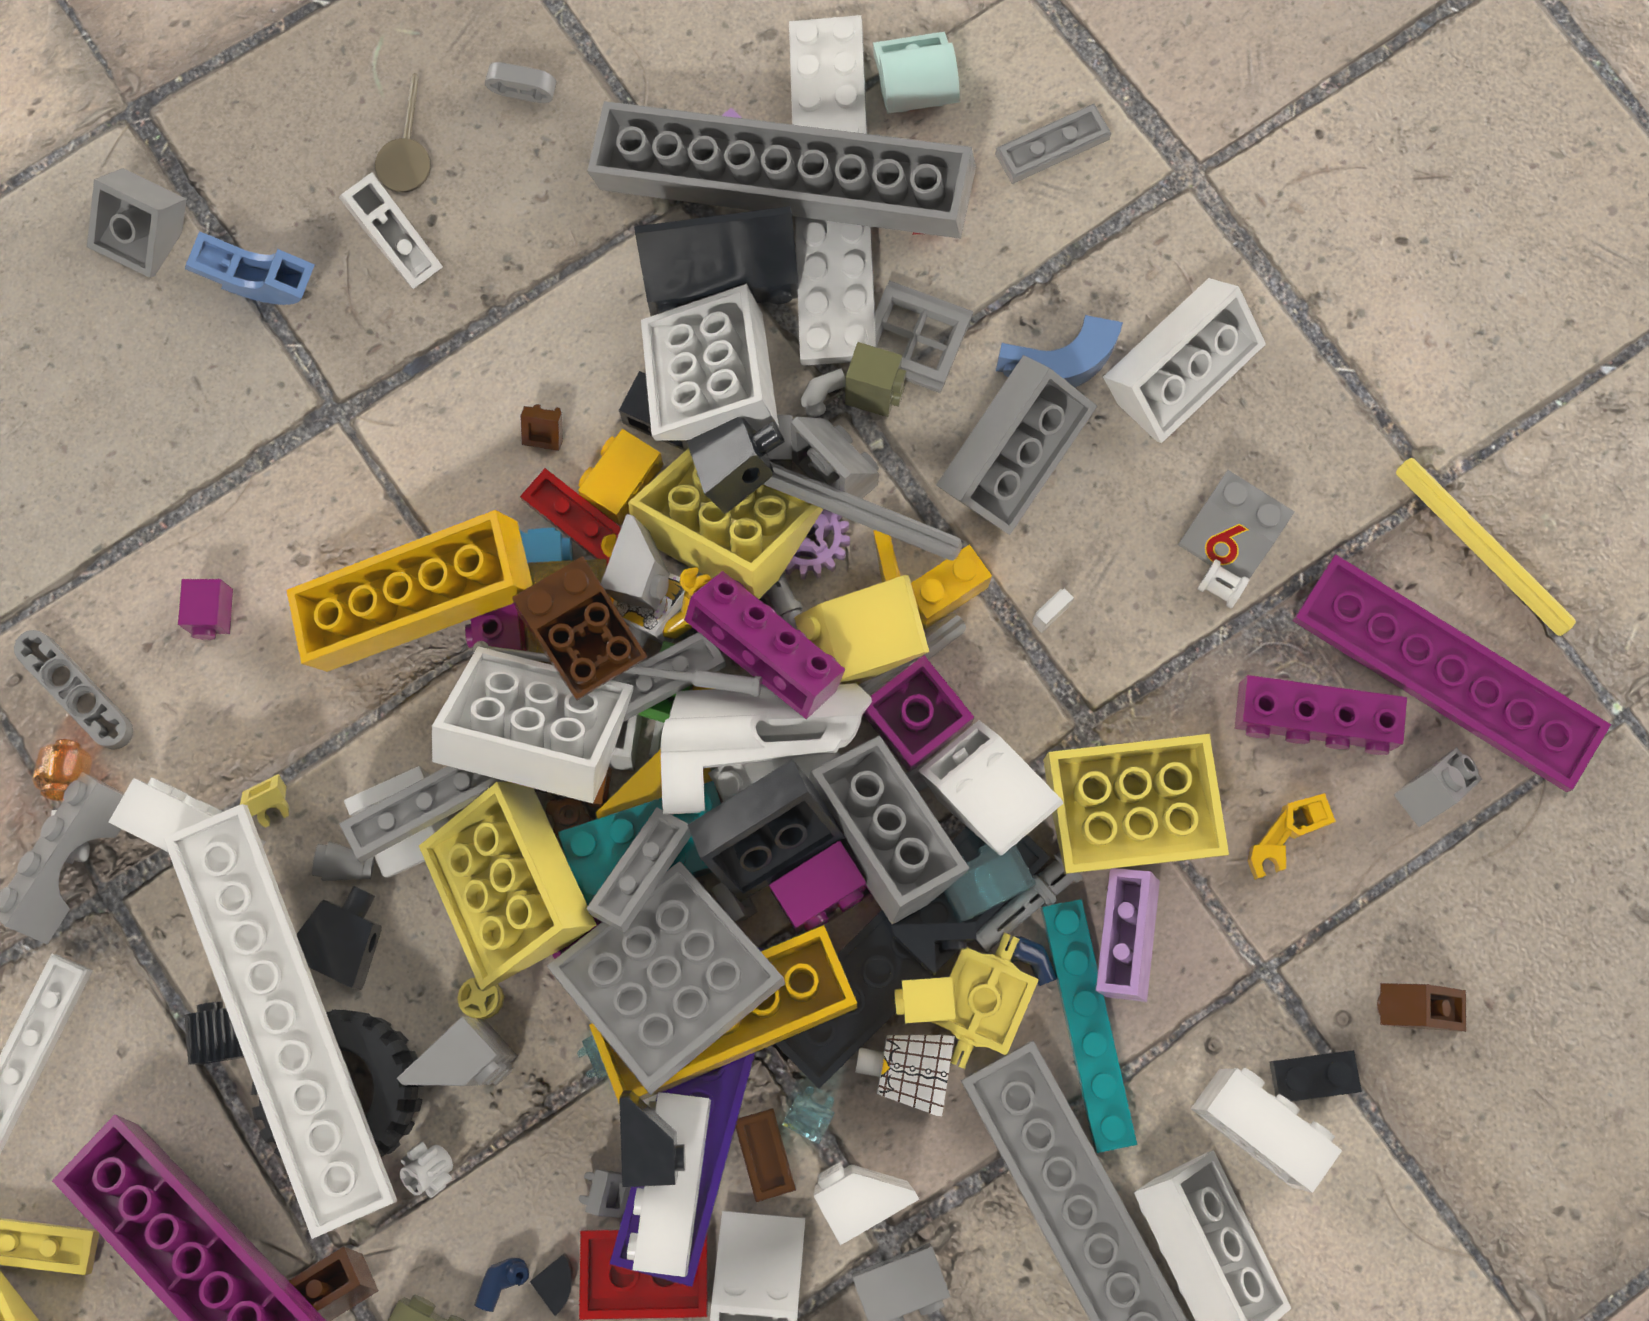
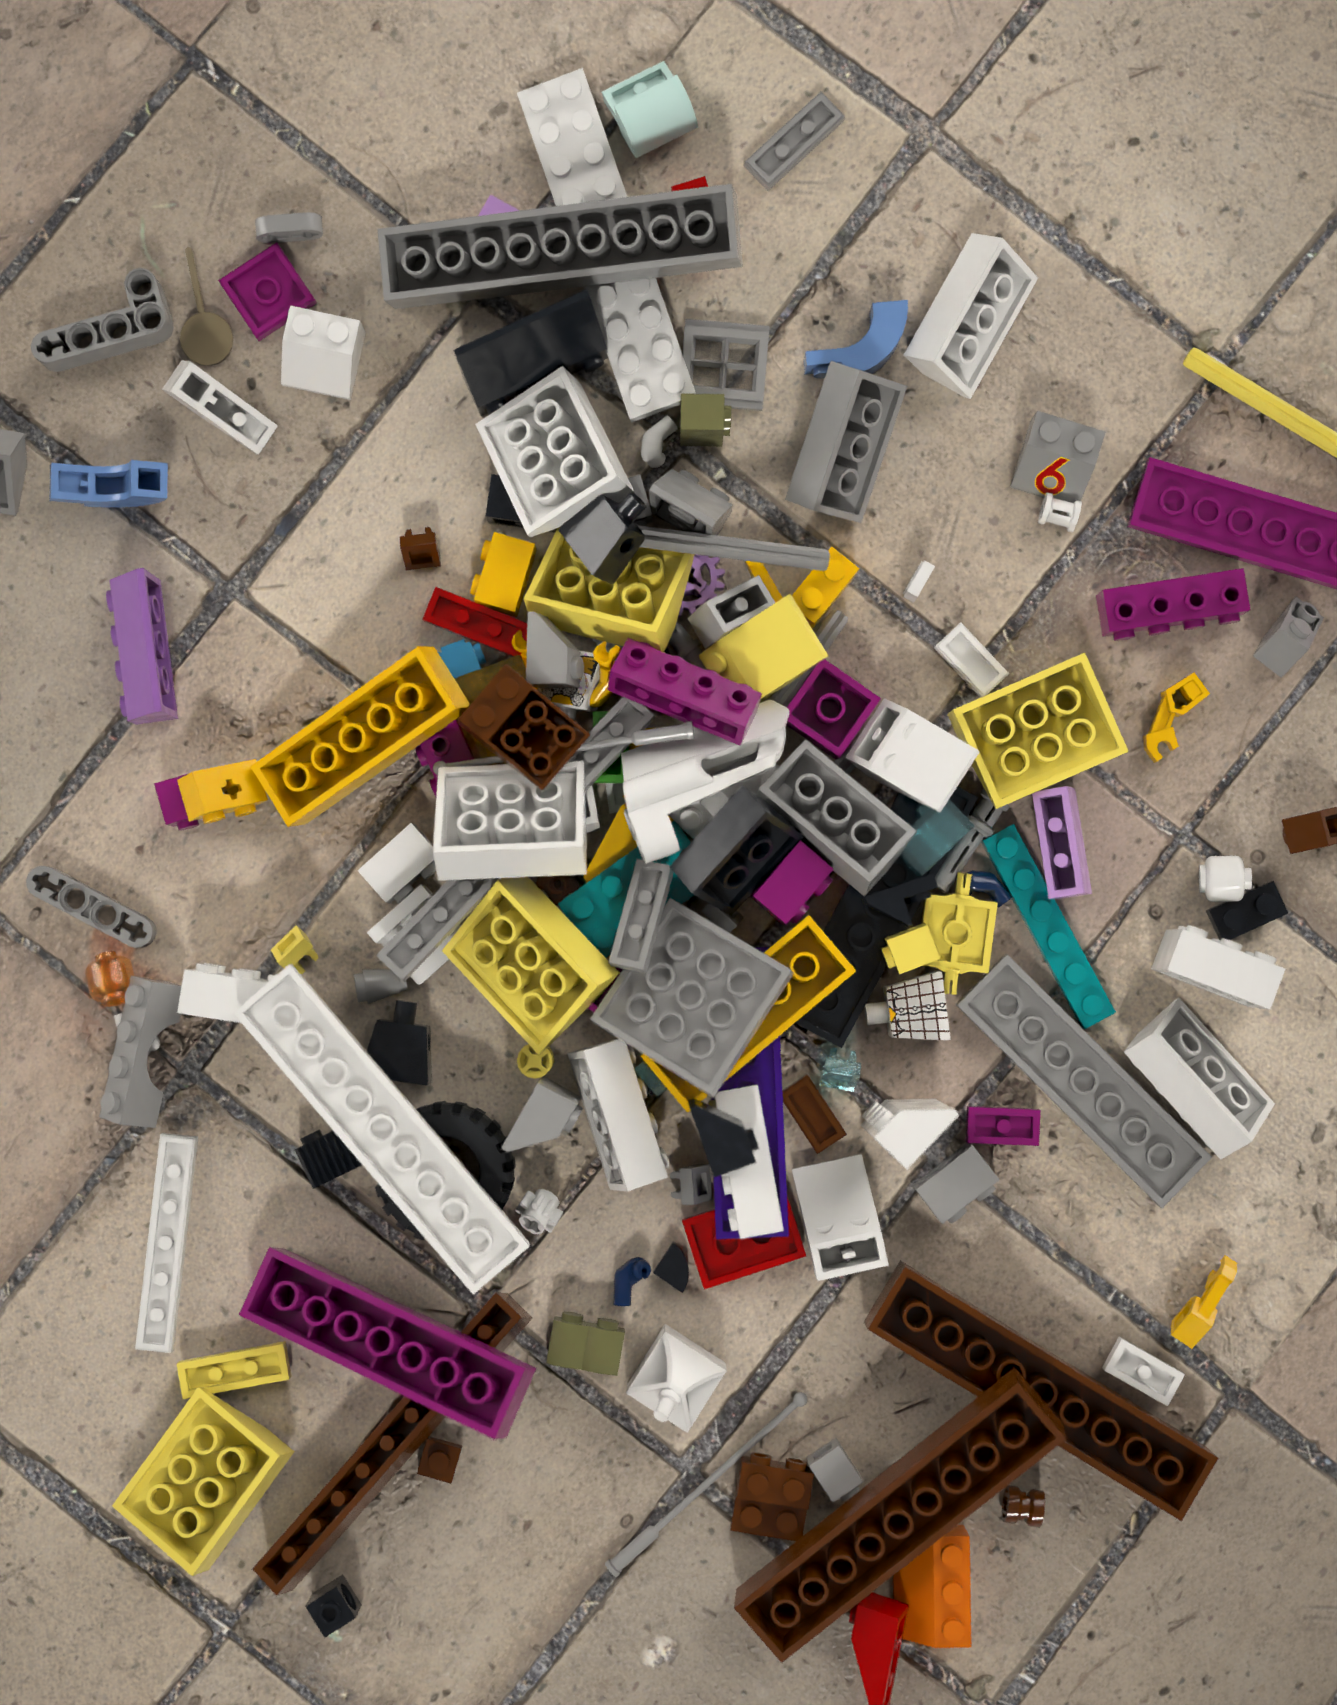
camera: 20 degrees left, 10 degrees up
(224, 441) = (142, 647): none -> medium lavender slope
(226, 612) = (204, 791): none -> yellow brick
(255, 128) = (102, 327): none -> light grey beam
(402, 741) = (400, 864): none -> white brick
(478, 138) = (266, 290): none -> magenta tile
(510, 207) = (321, 352): none -> white slope
(548, 1087) = (619, 1115): none -> white slope
(839, 575) = (730, 610): none -> light grey brick
(973, 1235) = (1003, 1125): none -> magenta plate
(1085, 710) = (971, 660): none -> white tile
(1299, 1030) = (1224, 878): none -> white head

